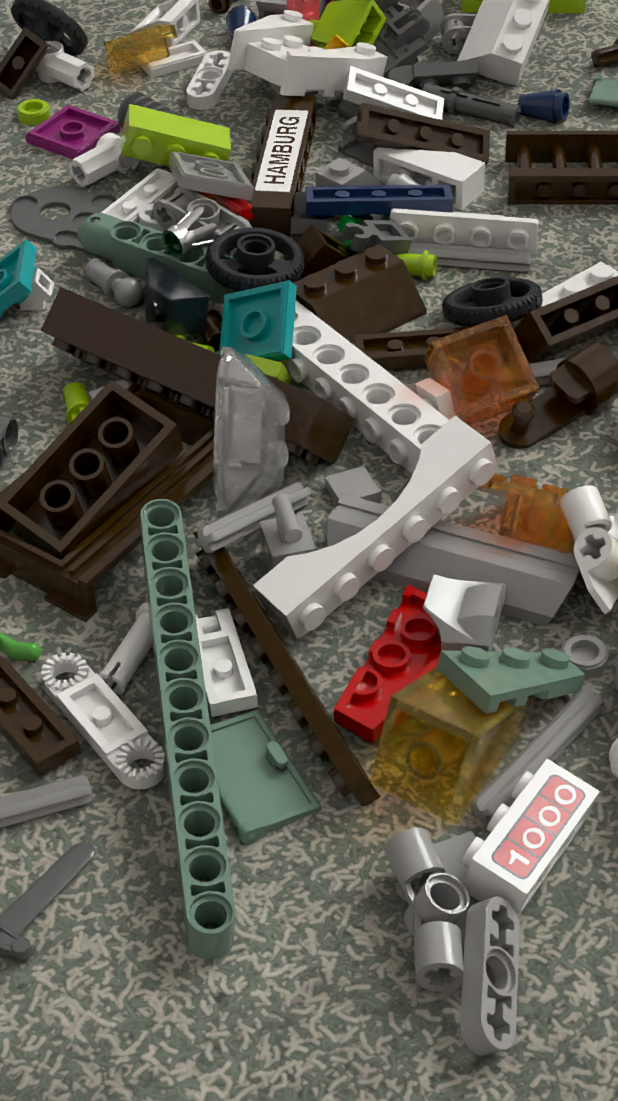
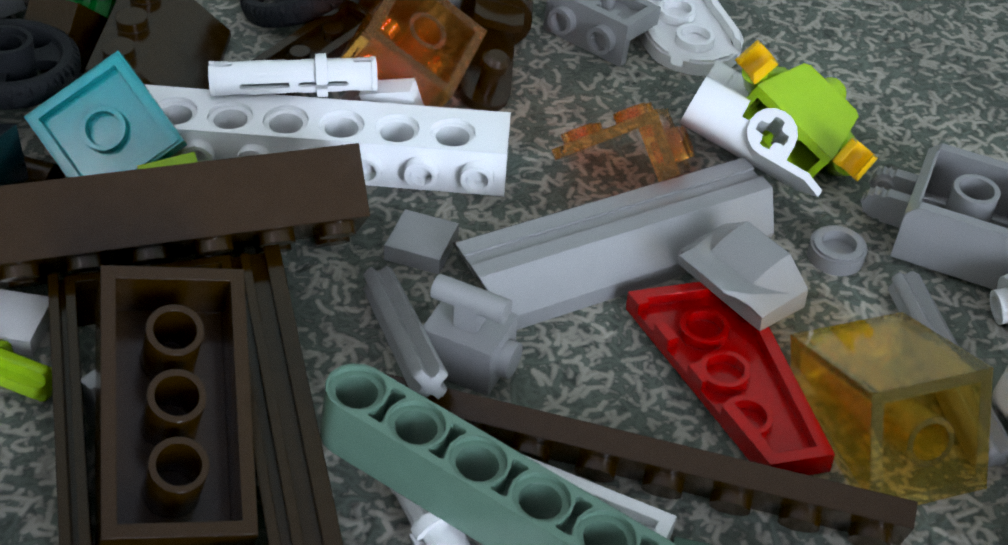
camera: 55 degrees left, 0 degrees up
(247, 434) = (309, 233): clear wedge -> none
(313, 584) = (560, 352): white arch -> none
(392, 355) = (293, 76): none -> white pin
(510, 675) = (871, 304): sand green wing -> none

